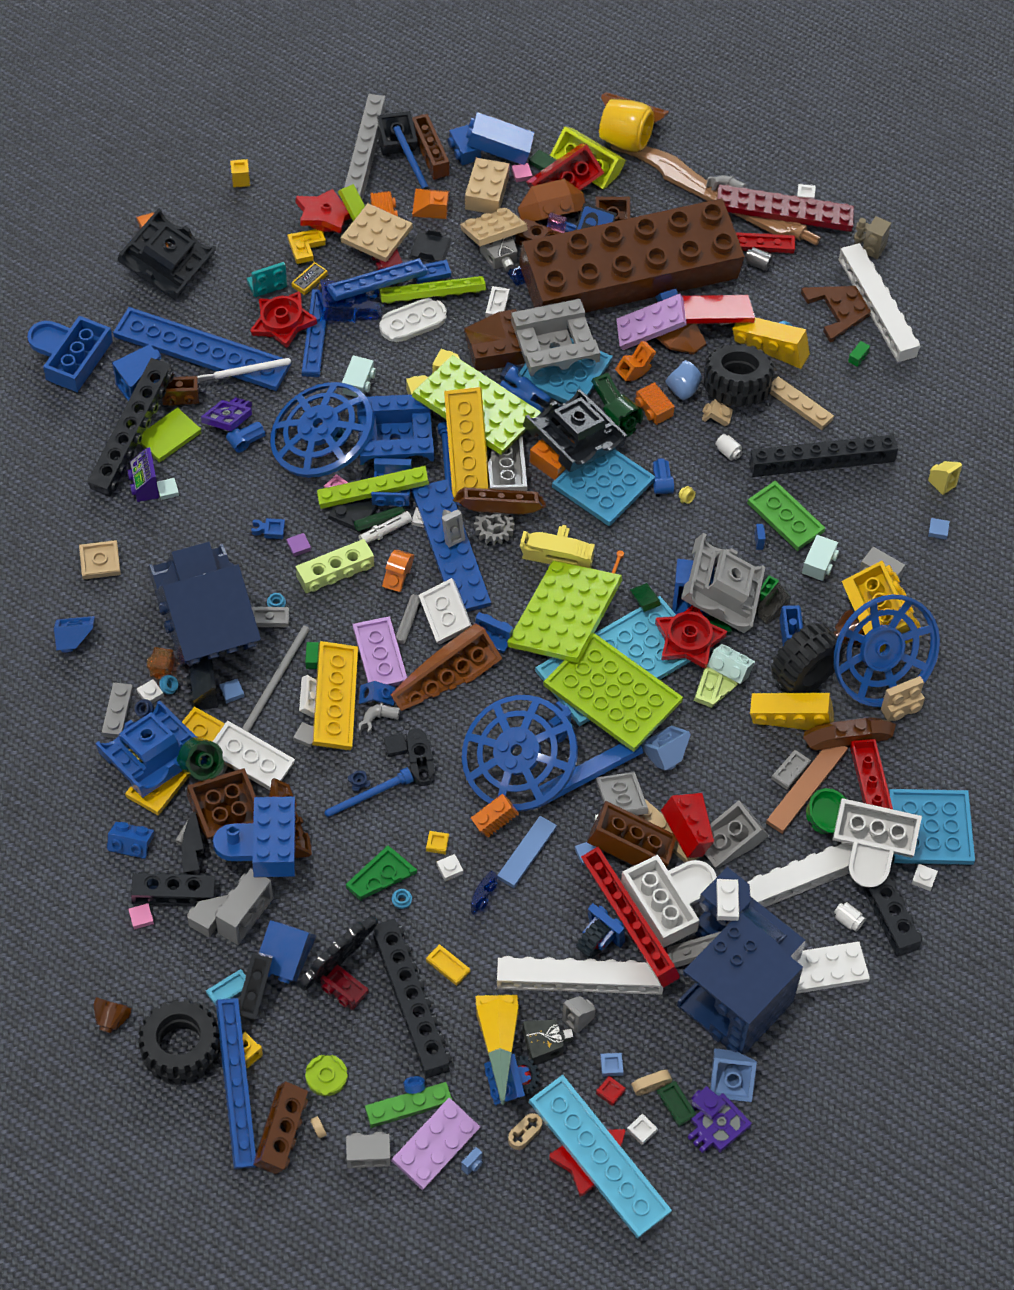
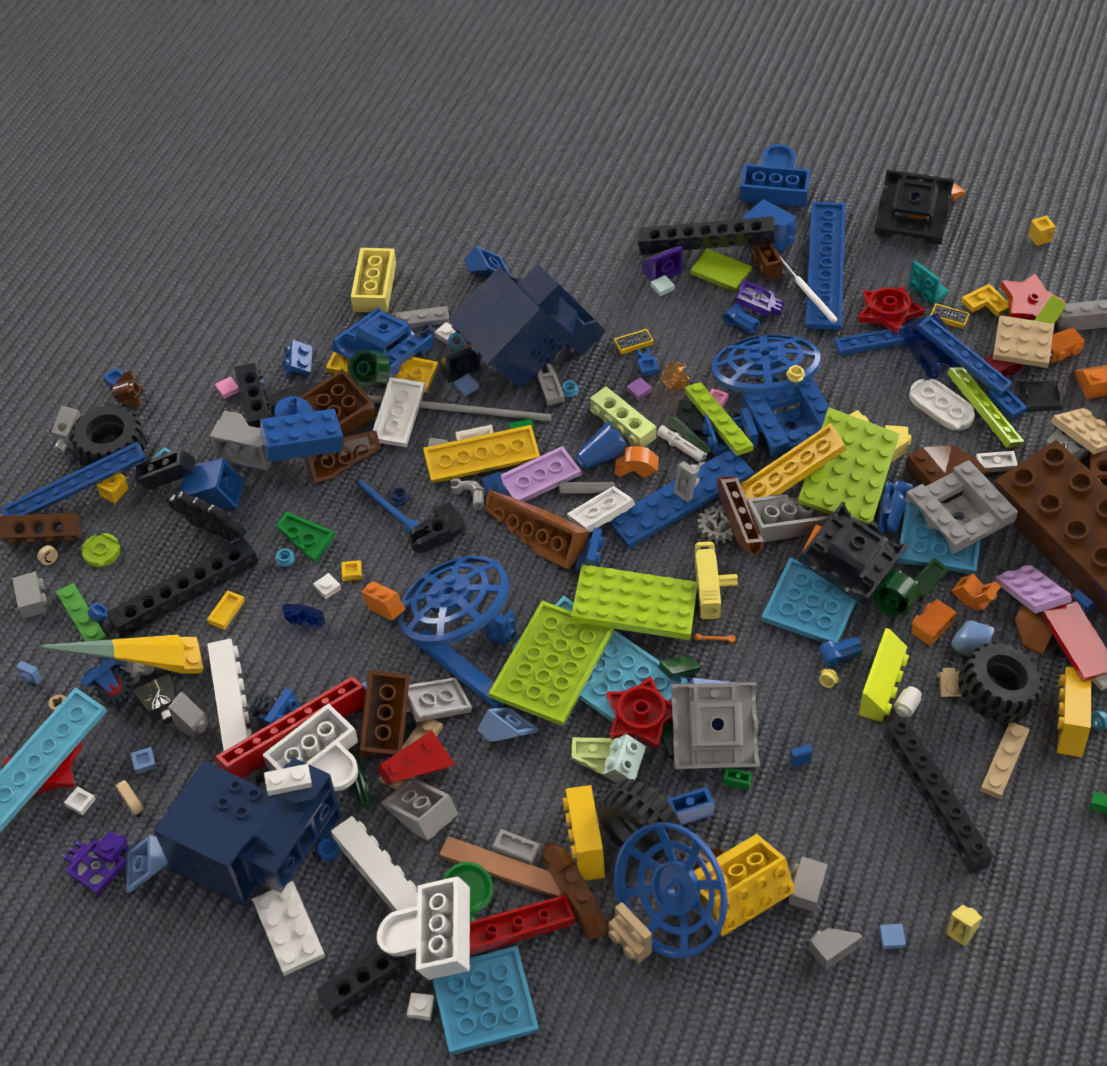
camera: 80 degrees right, 5 degrees down
(49, 740) = (373, 279): none -> light yellow brick
(77, 1030) = (112, 377): none -> blue tile
(99, 559) = (568, 263): tan plate -> none
(149, 1082) = (63, 428): none -> light grey torso
(234, 533) = (633, 341): none -> tile
(301, 507) = (674, 376): none -> clear orange piece
(344, 987) = (183, 537): dark red bracket -> none
(359, 375) = (845, 376): light aqua brick -> none
(367, 402) = (795, 374): none -> light yellow plate
(369, 589) = (601, 447): none -> blue cone
(435, 1143) = (30, 633): lavender plate -> none
(526, 852) = (359, 641): medium blue tile -> none
(610, 1090) = (119, 768): red tile -> none
(676, 1103) = (116, 823): dark green tile -> none
(701, 456) = (883, 677): none -> neon yellow slope
(772, 604) = (719, 786): clear smoke slope -> none
(786, 515) = (841, 776): bright green plate -> none
(820, 557) = (794, 817): light aqua brick -> none
(849, 916) = (350, 937): white brick -> none
(941, 569) = (833, 945): none -> light grey slope

